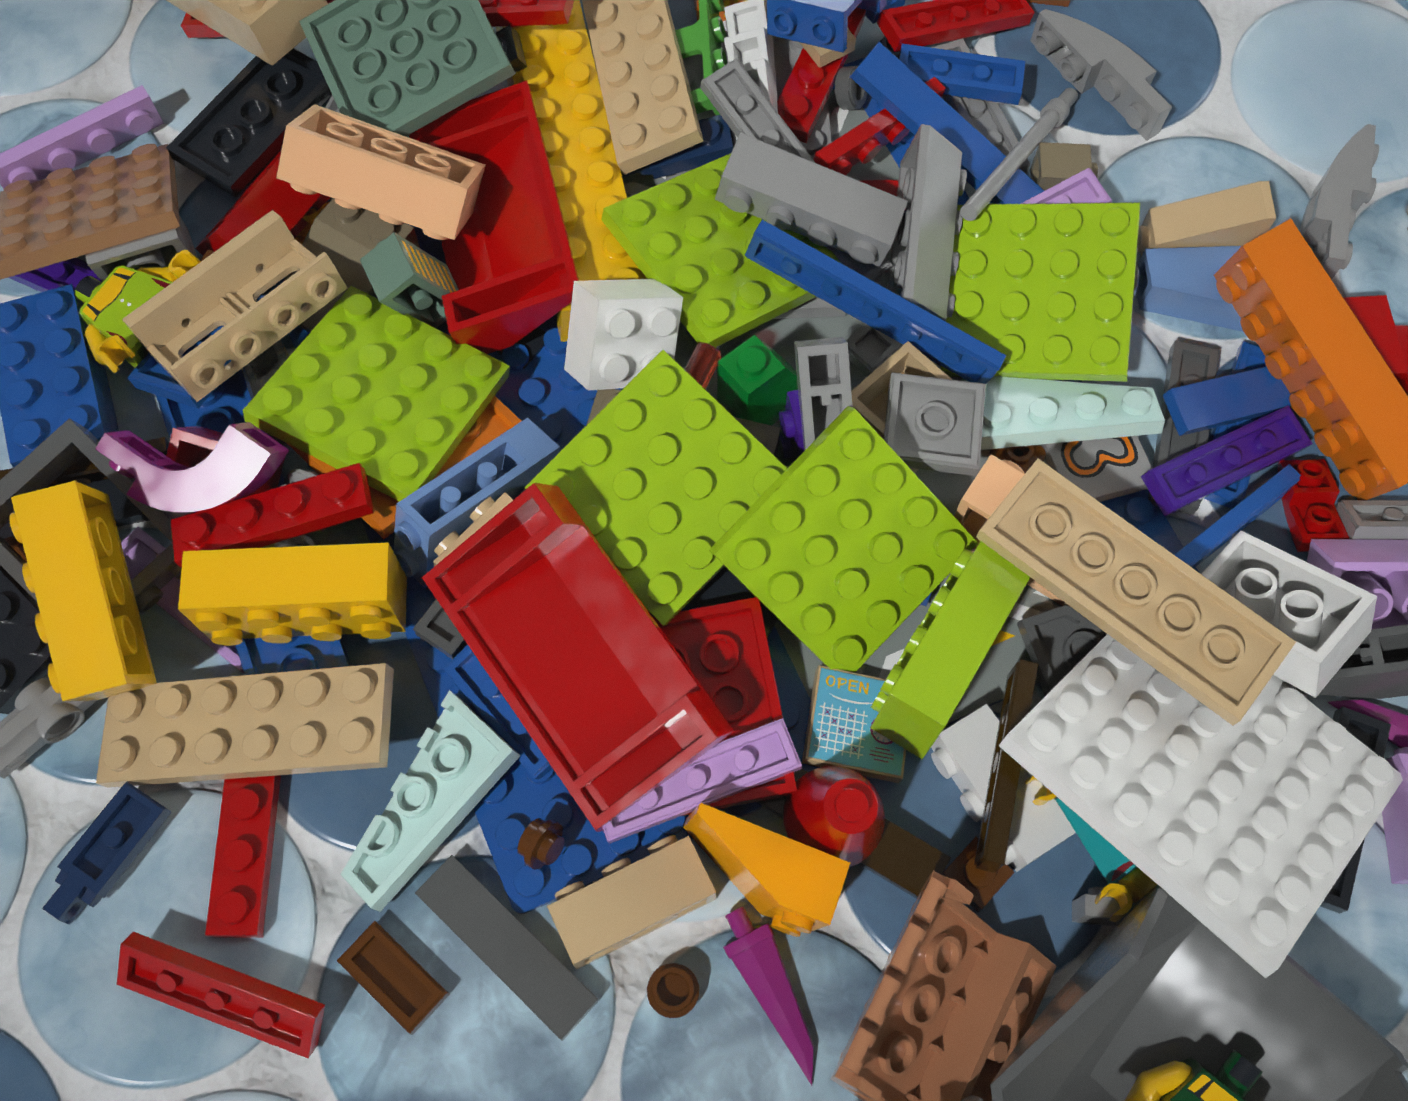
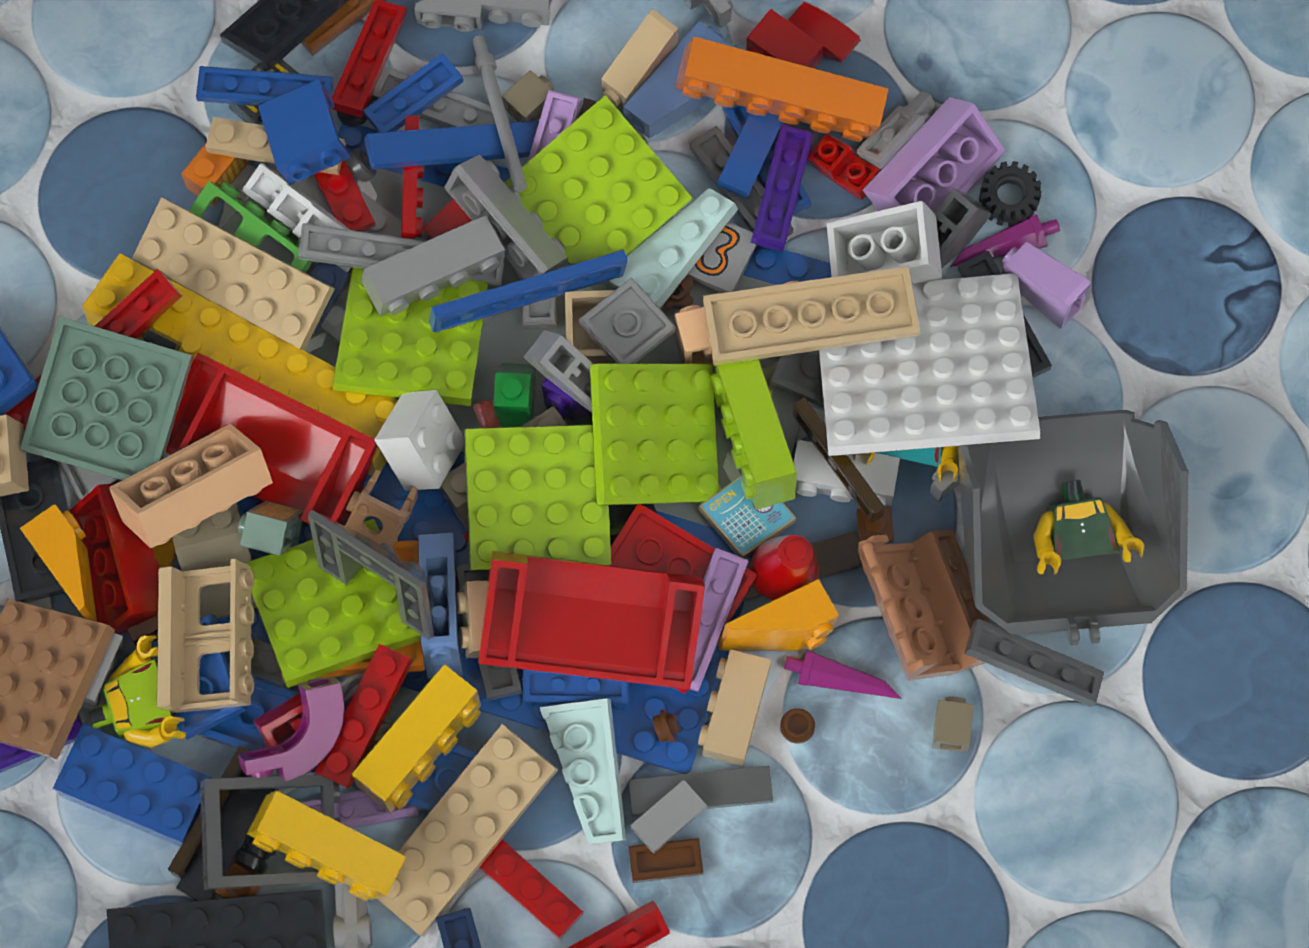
camera: 45 degrees left, 5 degrees up
(220, 141) = (59, 544): none -> light orange slope
(435, 393) = (345, 552): none -> dark grey slope
(440, 936) = (668, 816): none -> light grey tile
(508, 379) = (393, 520): none -> medium nougat piece
(1238, 517) = (818, 215): blue tile -> none

